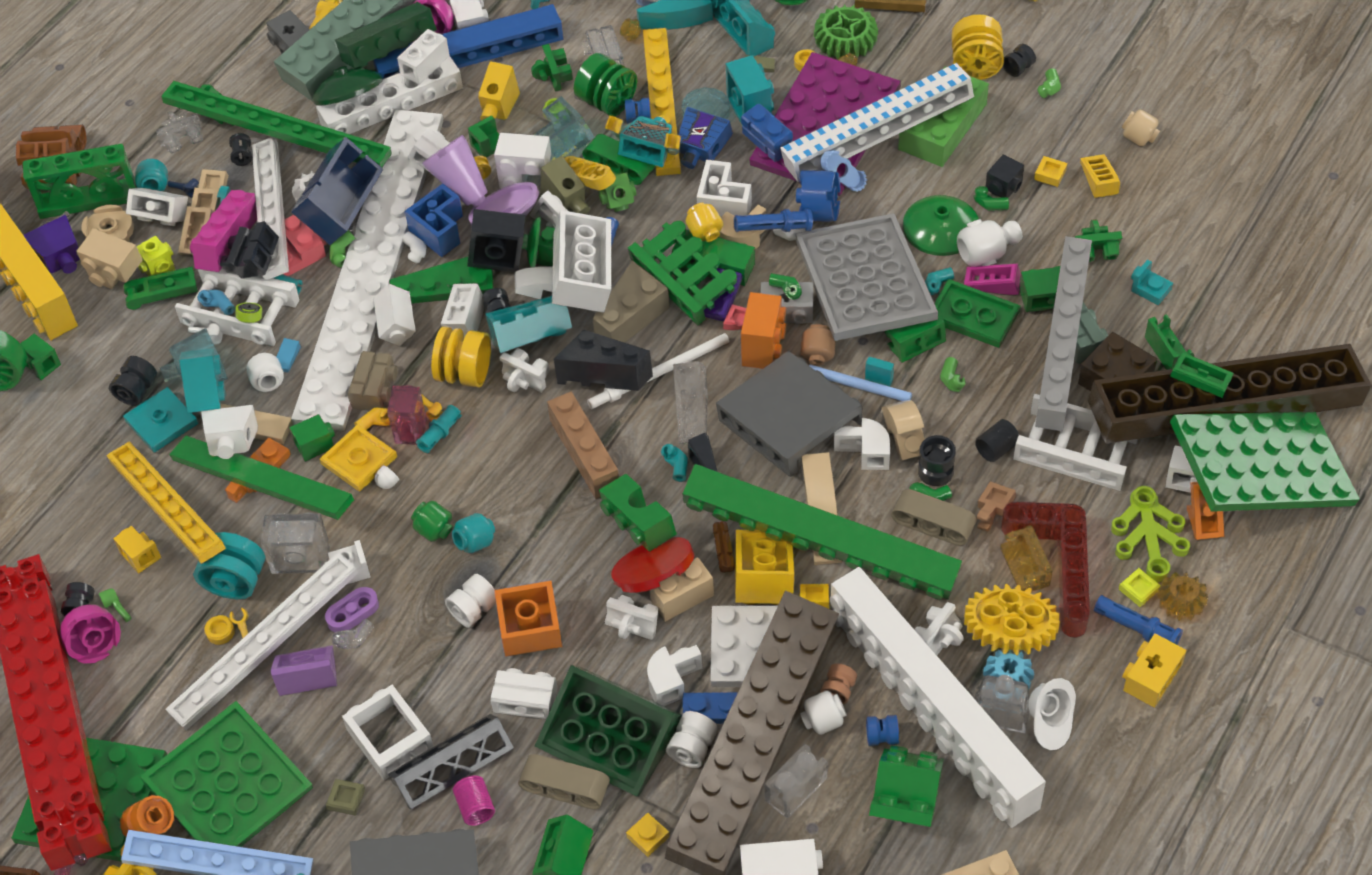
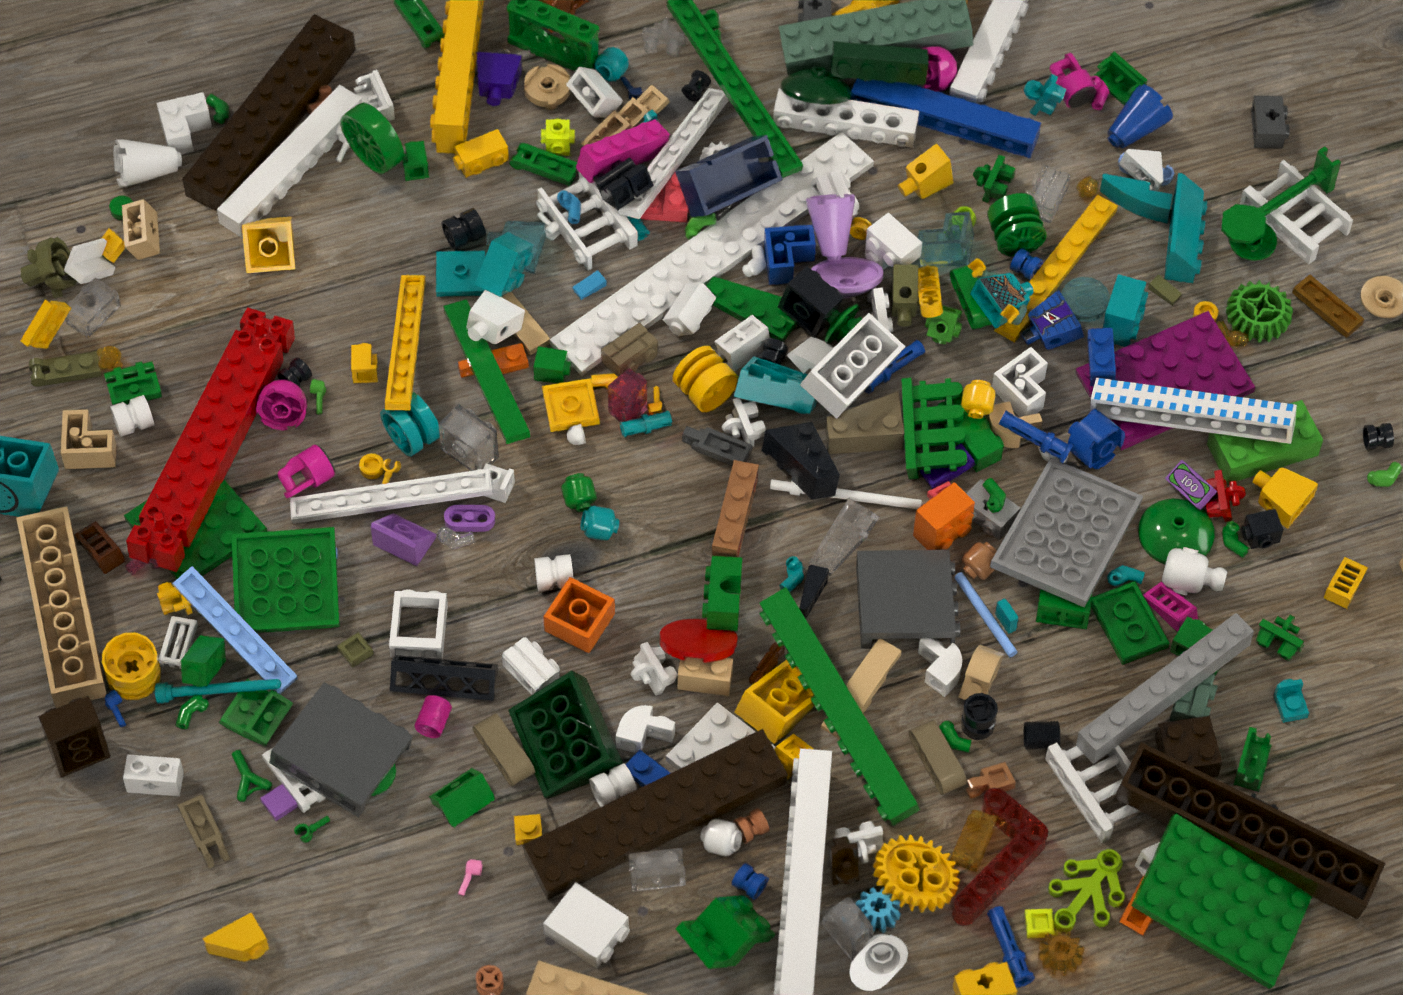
camera: 35 degrees right, 5 degrees up
(95, 313) = (481, 153): none -> yellow brick
(108, 258) = (520, 115): tan brick -> none
(148, 815) = (214, 567): orange wheel -> none
(166, 664) = (314, 466): none -> dark pink piece
(248, 312) = (584, 232): lime tile -> none
(265, 372) = (560, 288): white head -> none
(423, 56) = (893, 102): white brick -> none
(484, 136) = (890, 202): green panel -> none
(516, 404) = (717, 445): none -> dark grey hinge
(852, 178) = (1140, 442): light blue piece -> none
(921, 181) = (1191, 484): none -> medium lavender tile
(948, 376) = (1058, 657): bright green arm -> none
(949, 649) = (844, 861): none -> dark brown hips
(954, 170) = (1221, 506): none -> red hips
(978, 46) = (1348, 401): yellow wheel -> none
(993, 140) = (1286, 493): none -> yellow torso
(1050, 171) = (1306, 550): yellow plate -> none
(1200, 377) = (1222, 803): green tile -> none

